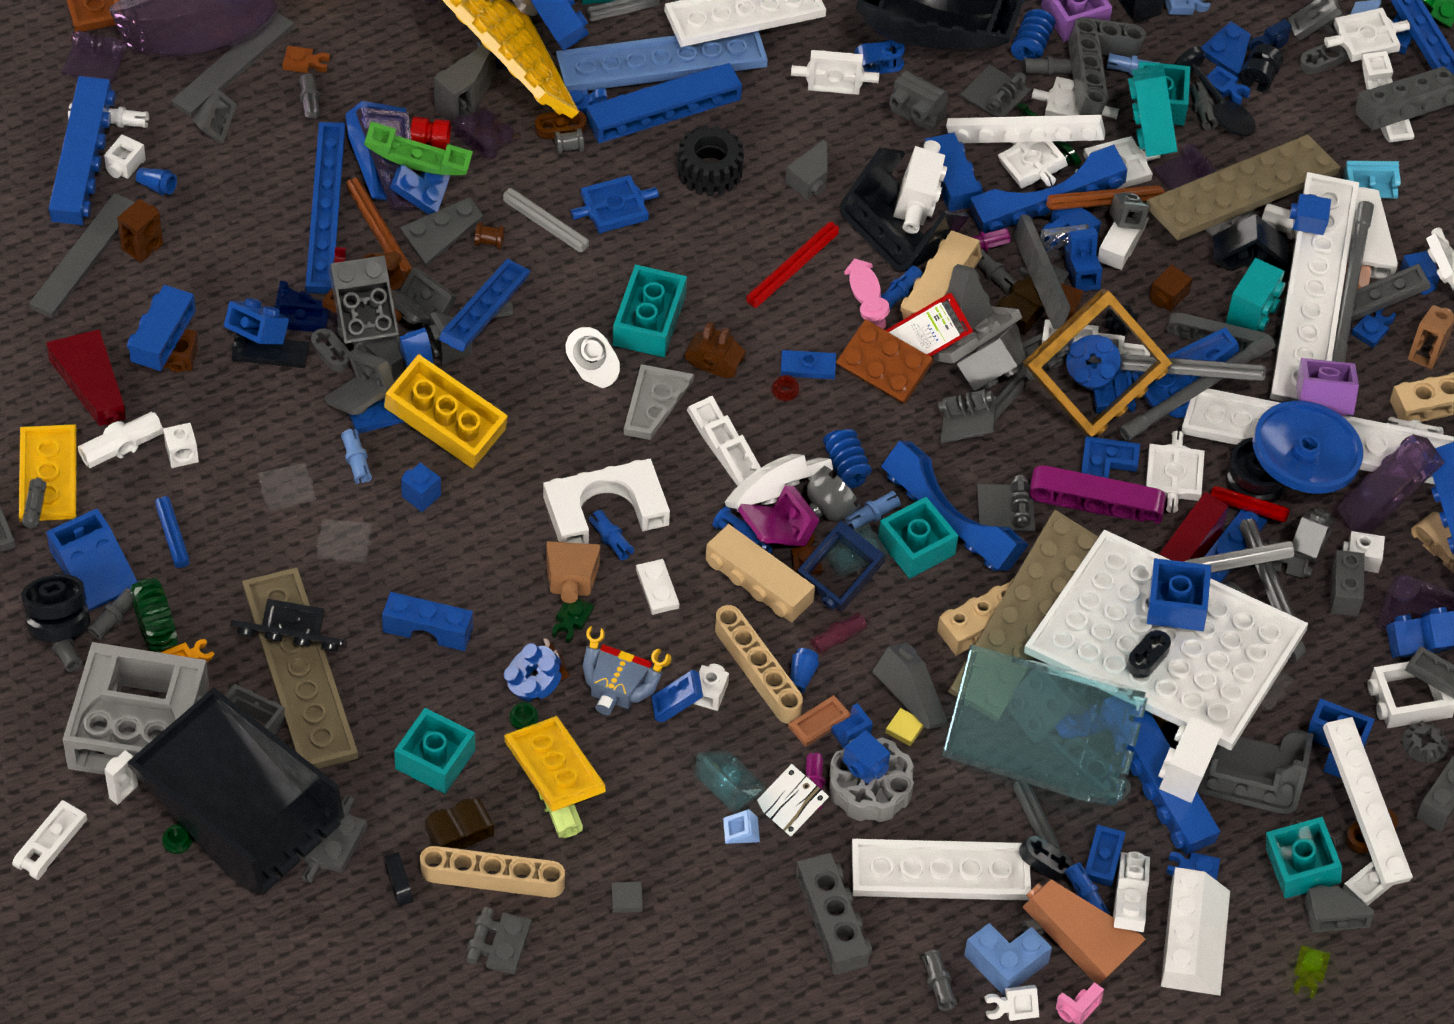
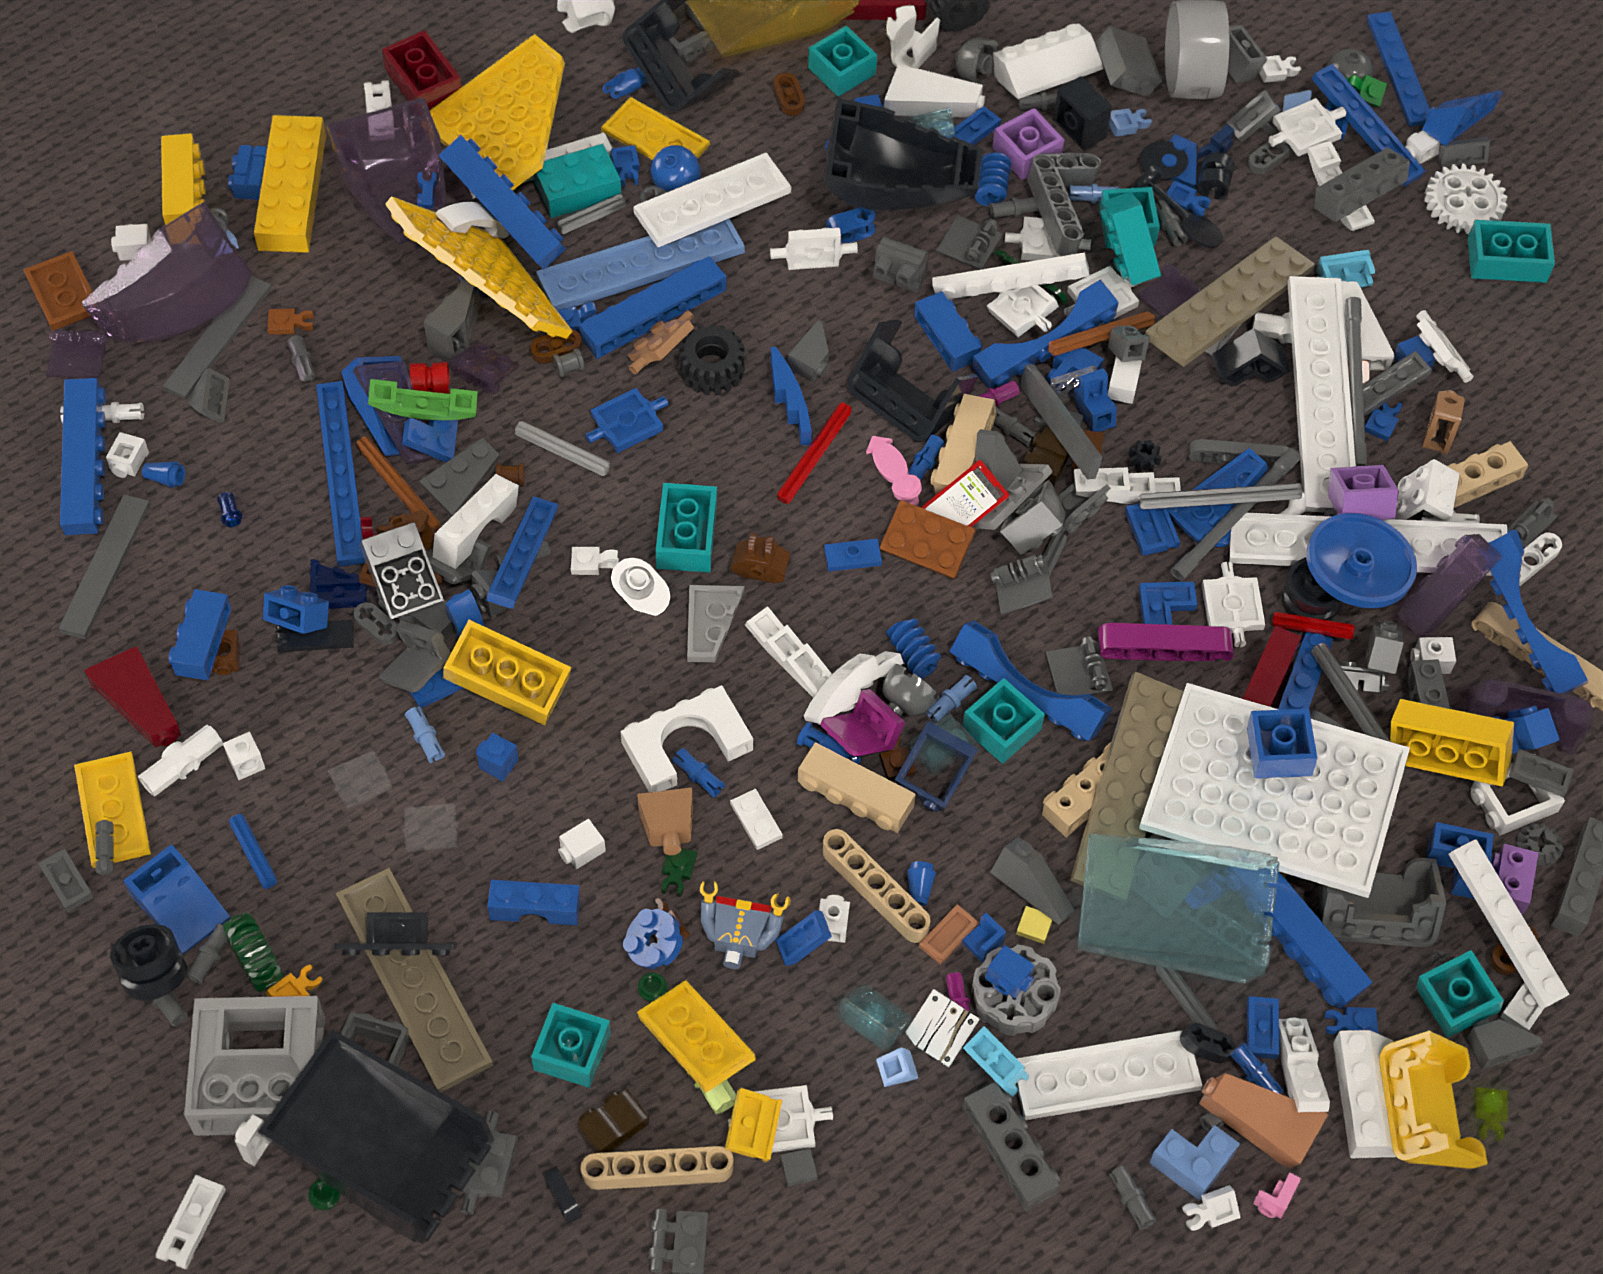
camera: 10 degrees left, 5 degrees up
(140, 230) = (158, 531): reddish brown brick -> none
(212, 228) = (230, 514): none -> clear blue pin
(425, 279) = (458, 535): none -> white arch
(484, 578) = (581, 844): none -> white brick
(549, 326) = (589, 560): none -> white plate
(590, 848) = (753, 1124): none -> yellow plate
(618, 852) = (795, 1118): none -> white plate
(664, 134) = (660, 341): none -> medium nougat plate
(779, 203) = (788, 391): none -> blue slope
(788, 382) = (836, 577): clear red plate -> none
(836, 834) = (996, 1060): none -> medium azure hinge
(838, 633) = (946, 836): clear pink pin -> none
(920, 186) = (923, 352): white brick -> none
(1070, 330) = (1107, 485): pearl gold window -> none
(1106, 371) = (1125, 519): blue plate -> none
(1144, 650) = (1271, 813): black beam -> none
(1170, 288) = (1184, 415): reddish brown brick -> none
(1188, 762) = (1335, 918): white brick -> none
(1203, 37) = (1153, 154): none -> black sticker
(1243, 942) = (1421, 1101): none -> yellow windscreen
(1247, 556) = (1325, 687): light grey axle -> none
(1256, 296) = (1270, 411): teal brick -> none
(1263, 389) = (1296, 506): none -> white arm
(1310, 214) = (1305, 318): blue brick -> none
(1356, 628) = (1454, 741): none -> yellow brick
(1390, 763) = (1517, 872): none -> medium lavender brick
(1398, 396) = (1428, 488): none -> white bracket

